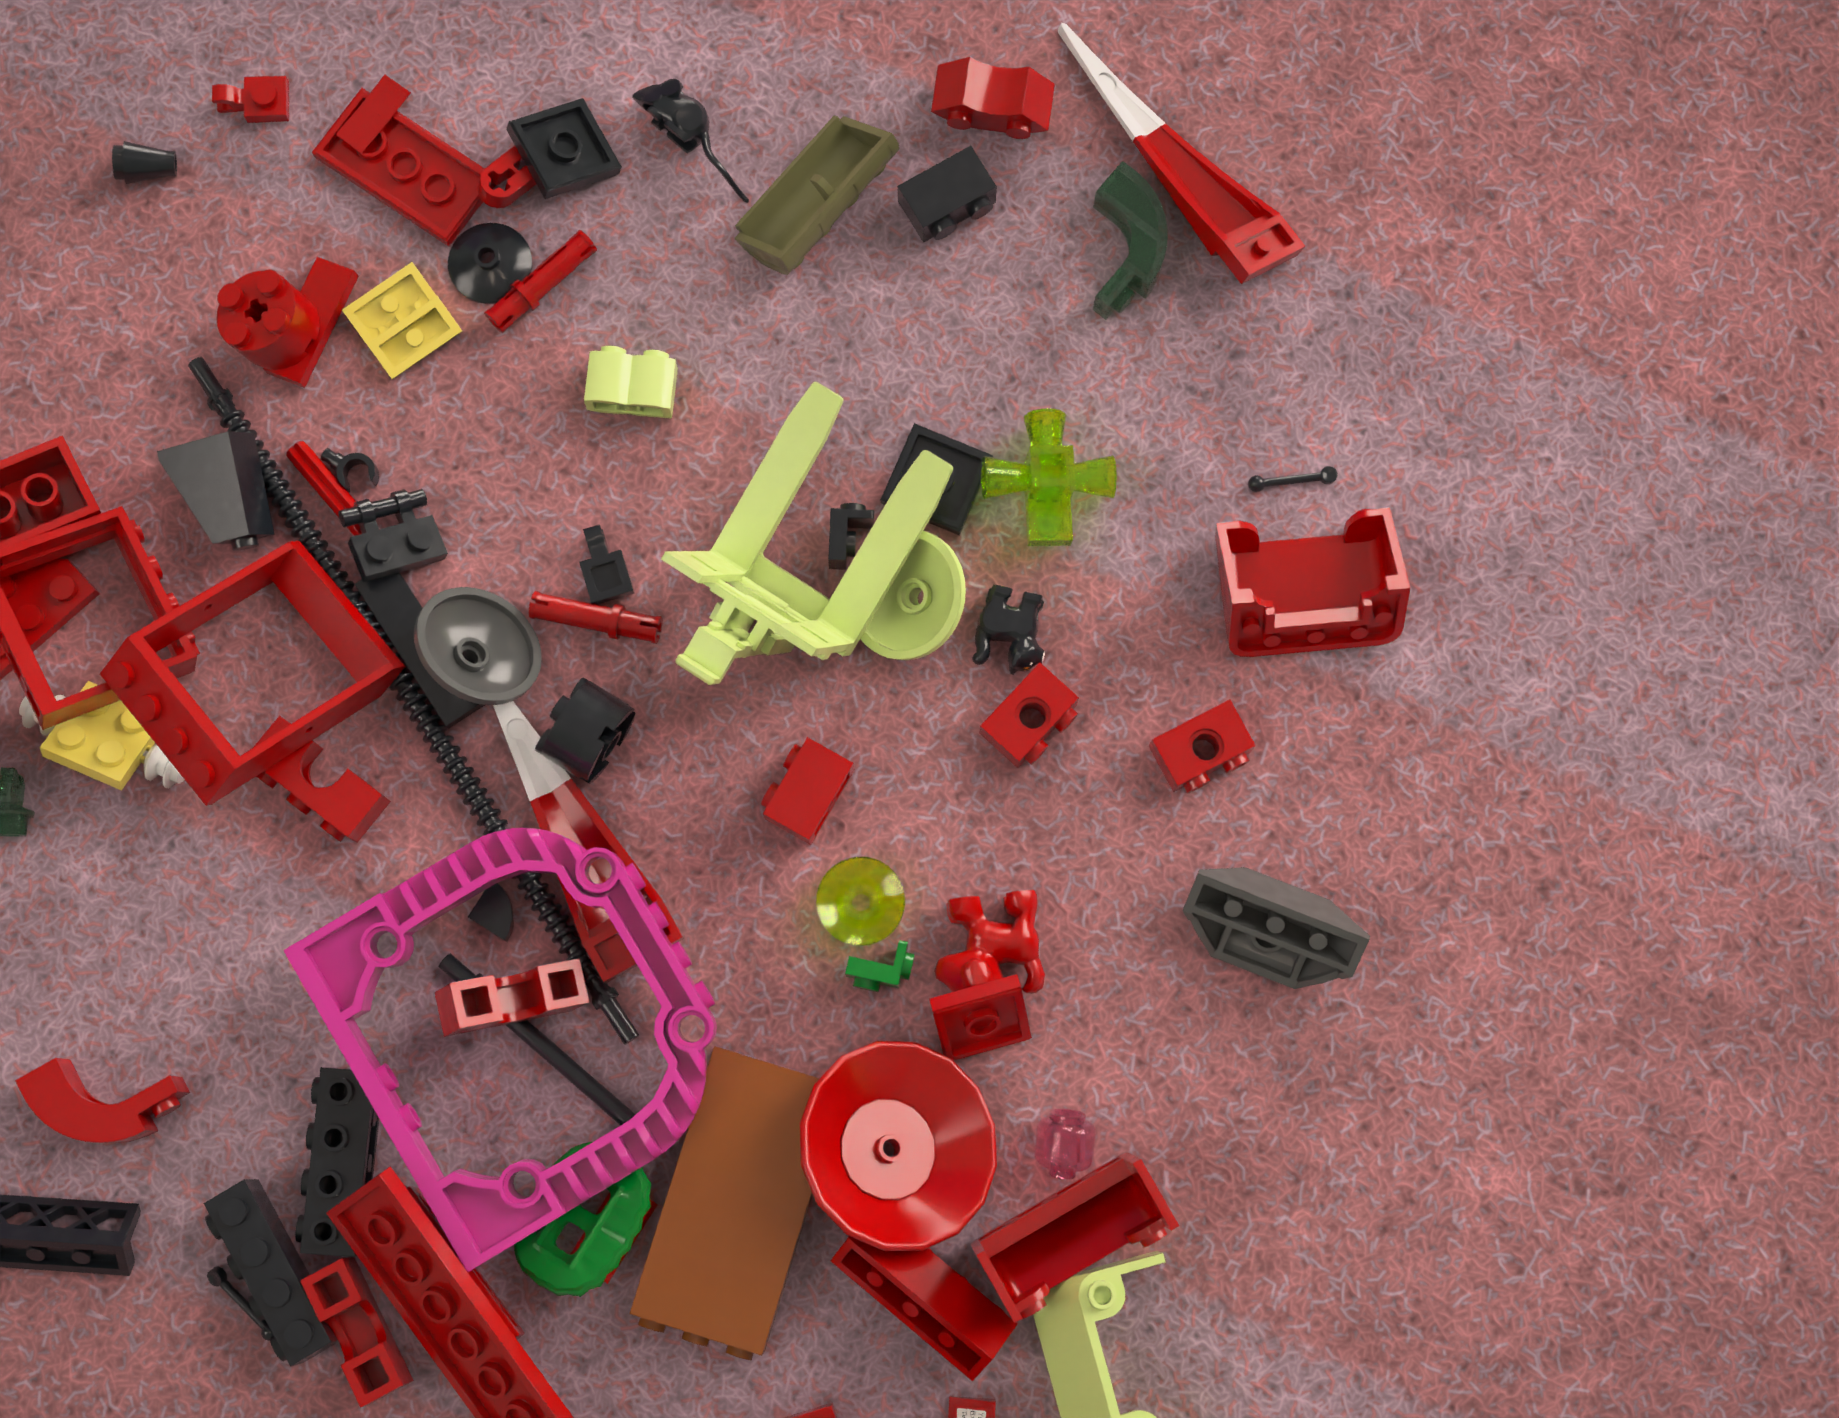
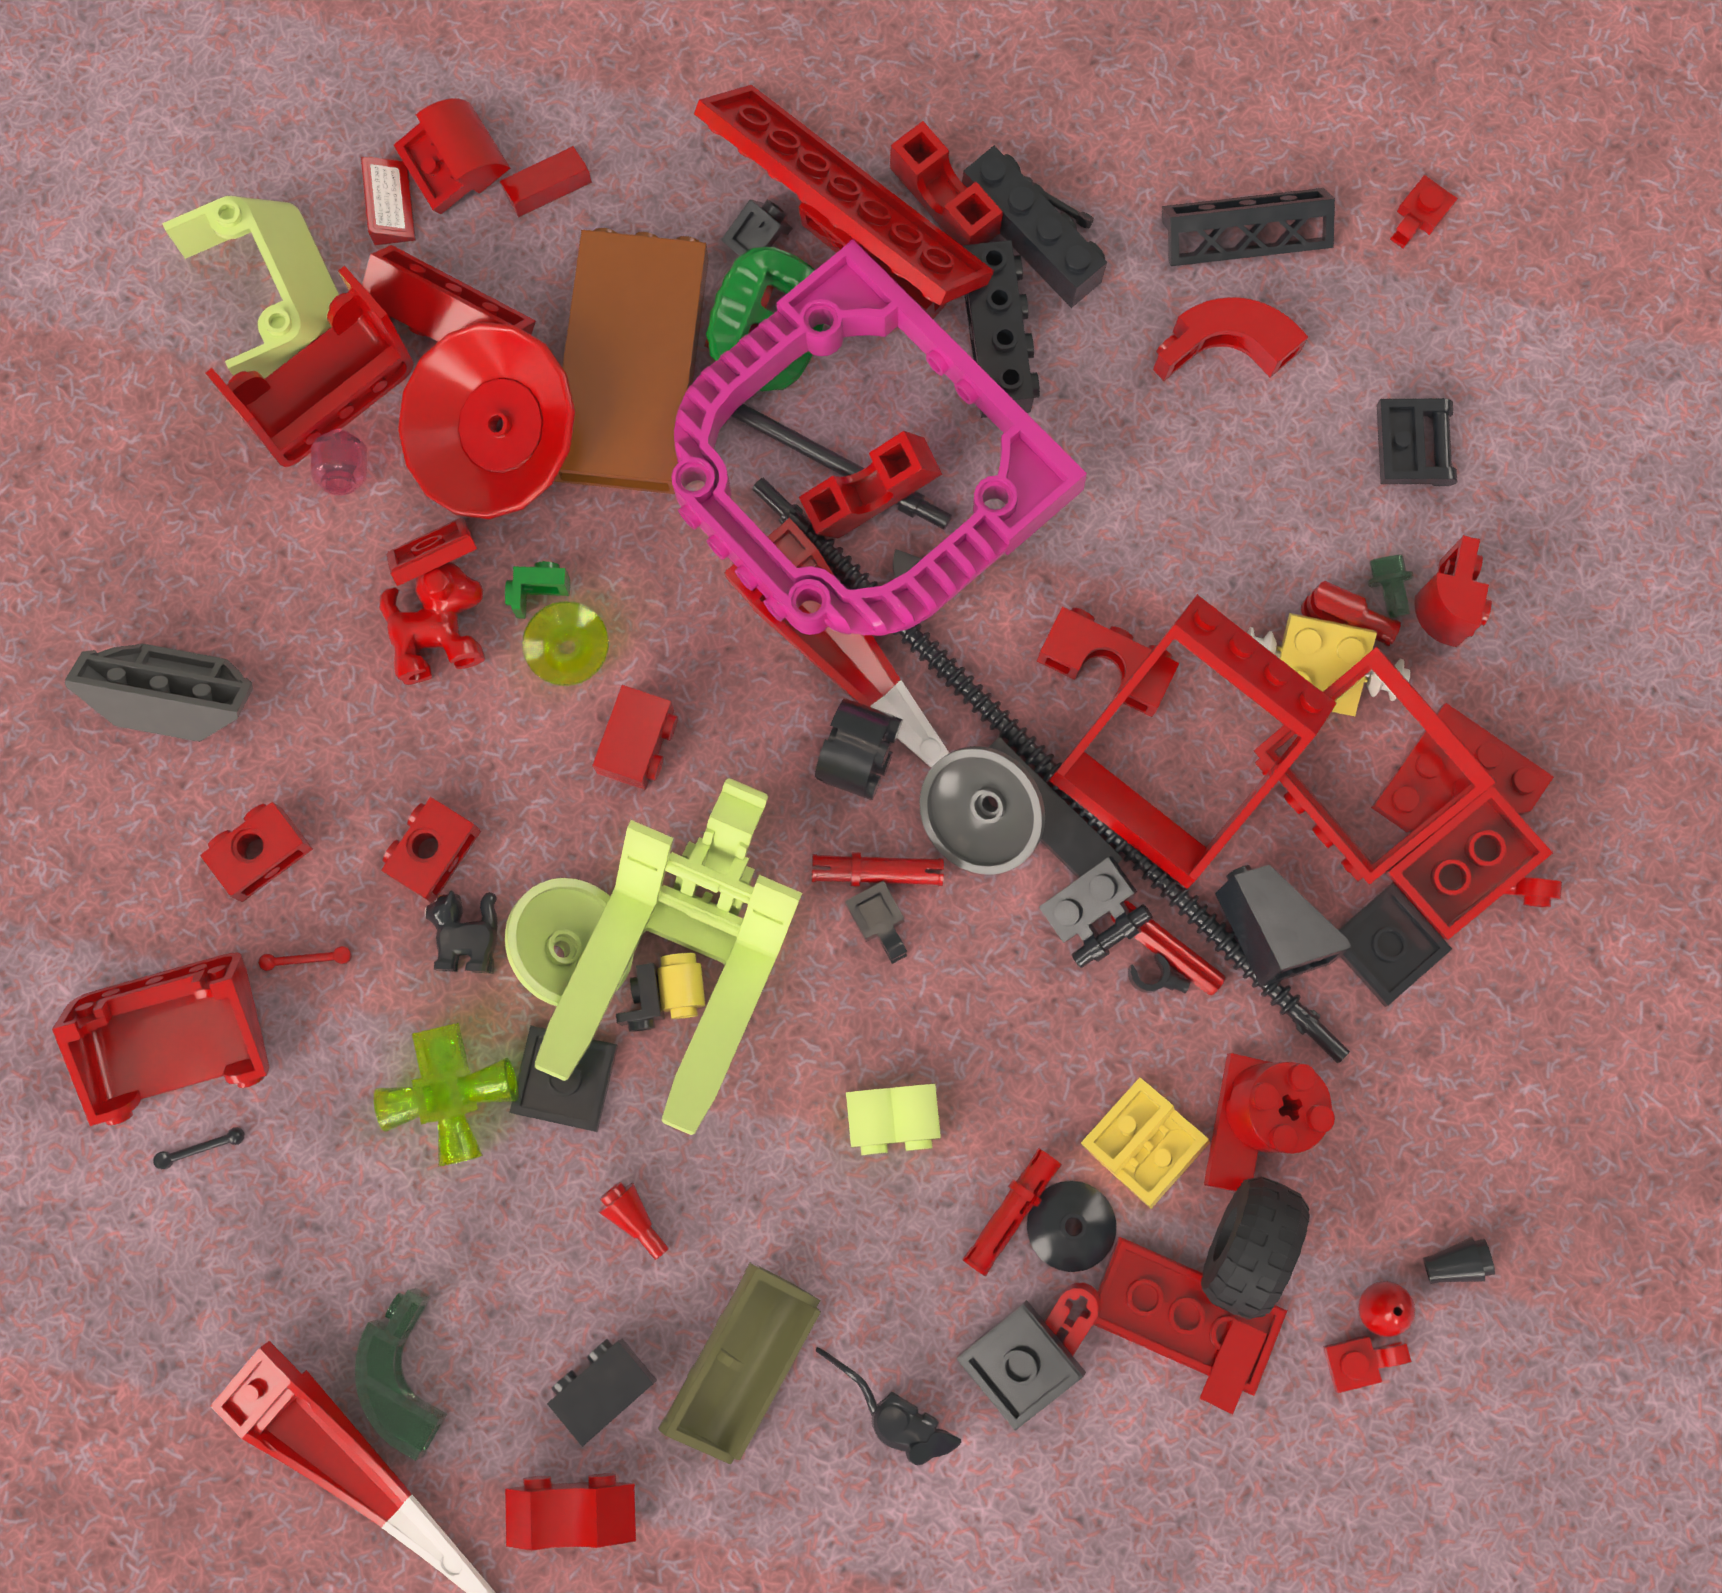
camera: 165 degrees right, 0 degrees up
(63, 786) = (1344, 607): none -> red arm
(120, 457) = (1391, 944): none -> black tile
(220, 133) = (1386, 1308): none -> red animal
(322, 197) = (1255, 1248): none -> black tyre
(572, 1328) = (756, 226): none -> black bracket
(807, 540) = (681, 985): none -> light yellow brick
(898, 348) = (627, 1211): none -> red cone
(1134, 636) = (341, 955): none -> red hinge

